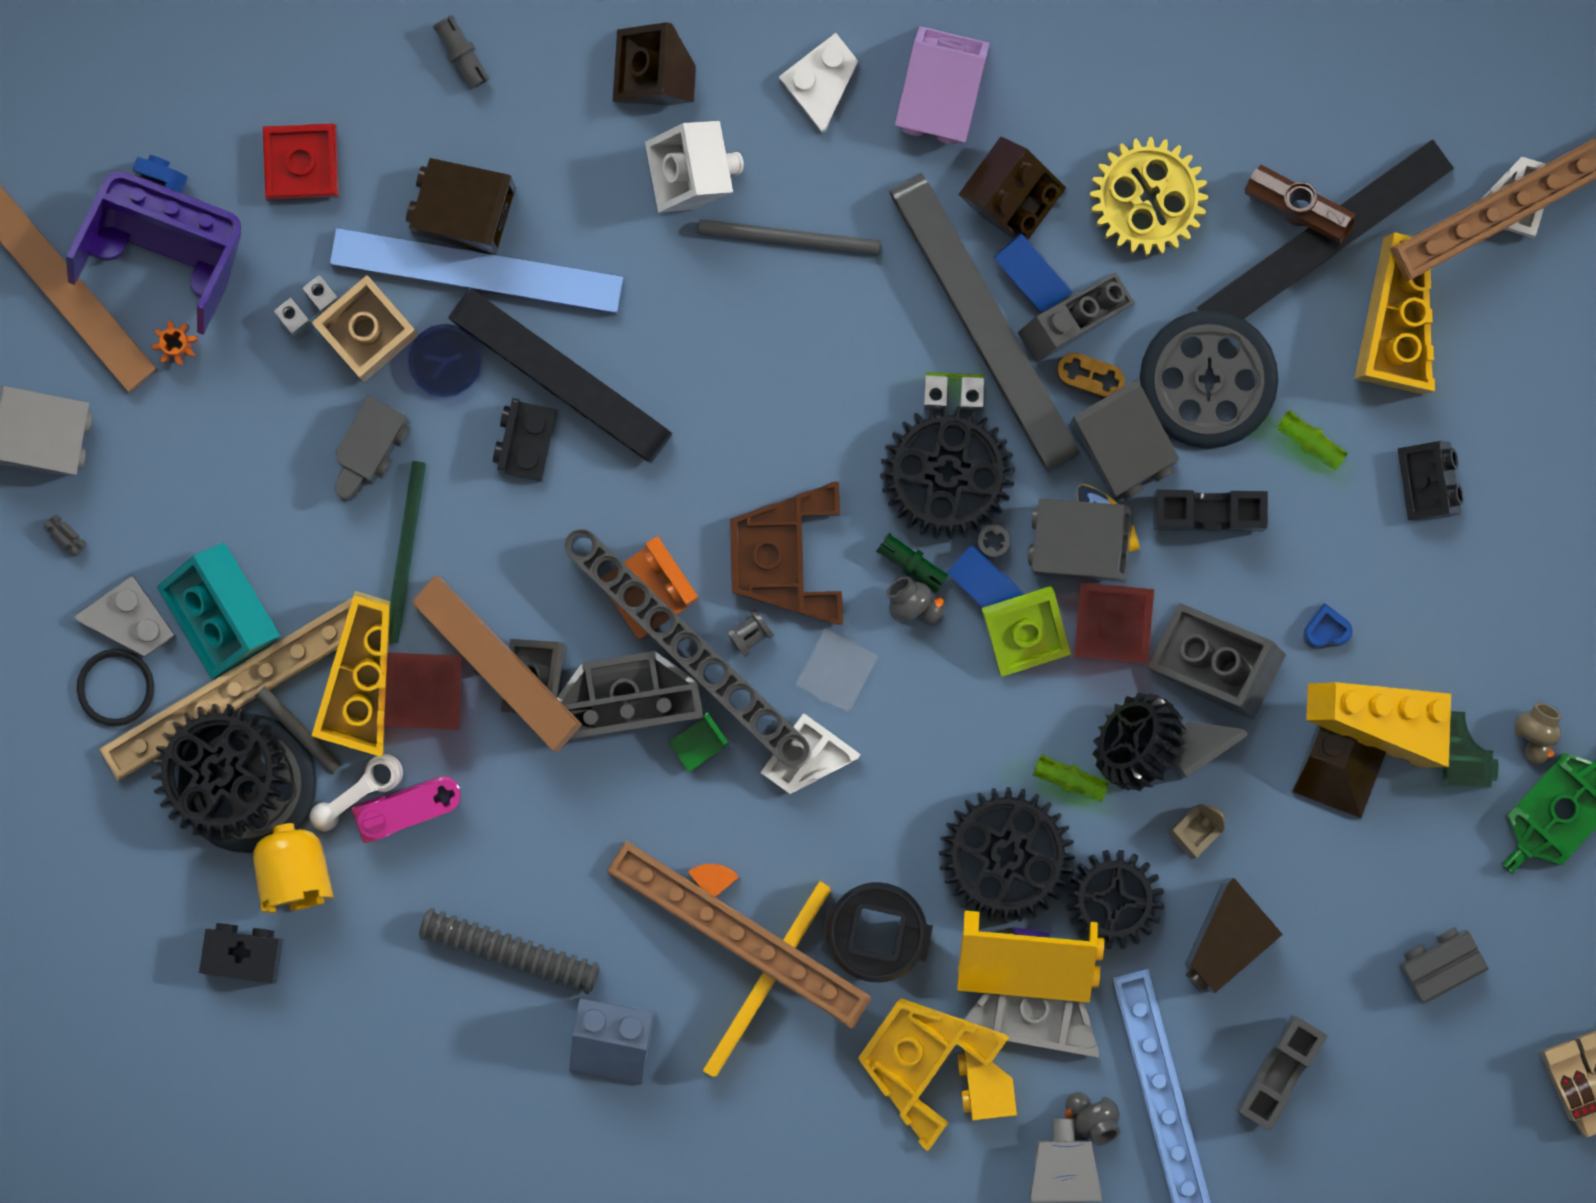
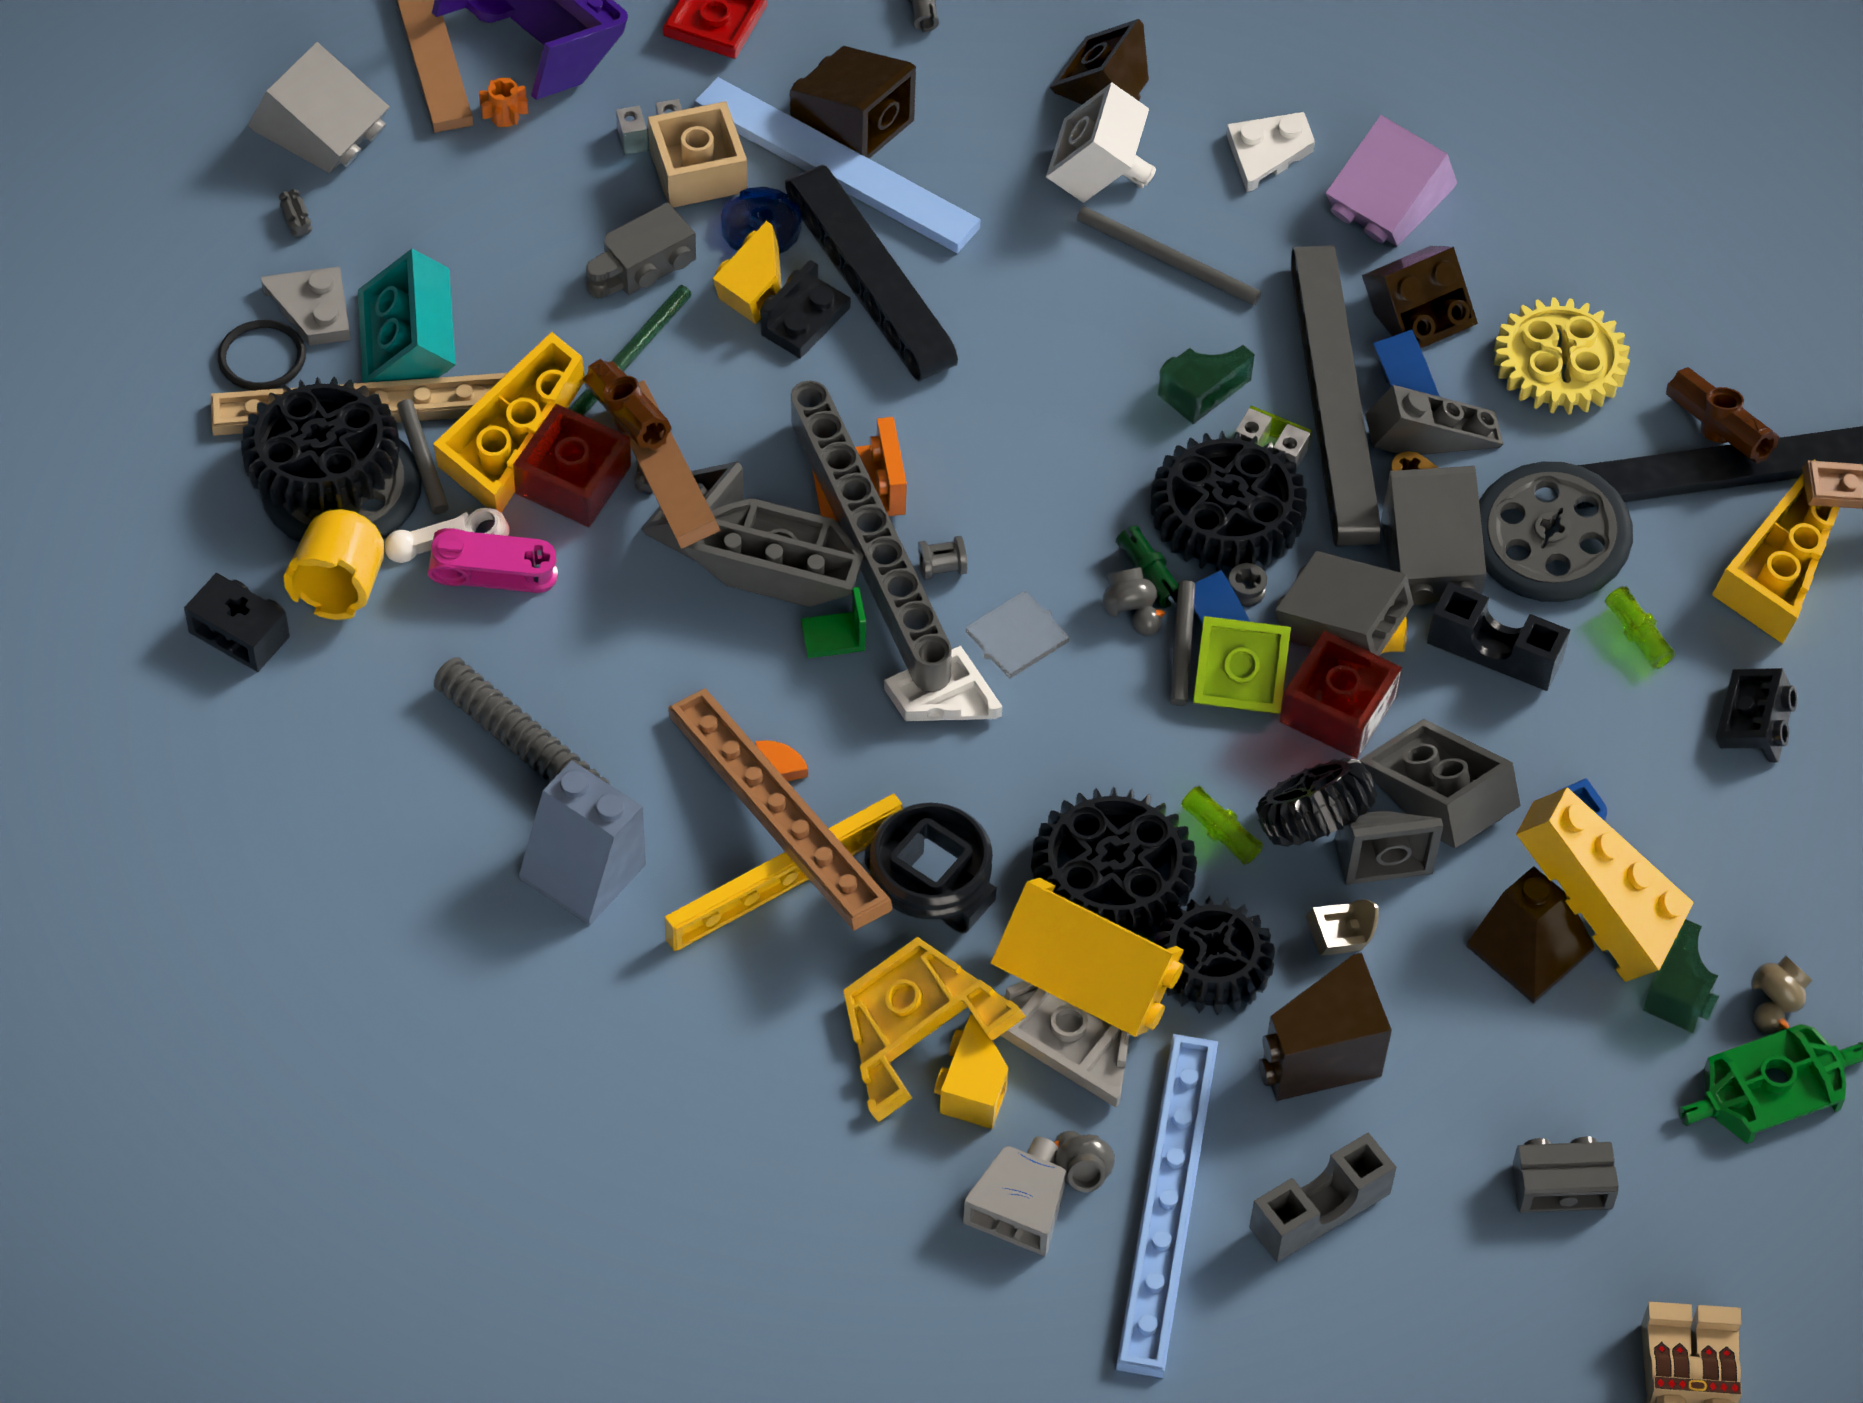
camera: 20 degrees right, 30 degrees down
(457, 632) = (627, 404): none -> reddish brown piece
(472, 429) = (750, 273): none -> yellow slope
(770, 555) = (1002, 500): reddish brown wing -> none
(873, 364) = (1201, 382): none -> clear green arch
(969, 625) = (1182, 643): none -> dark grey bar

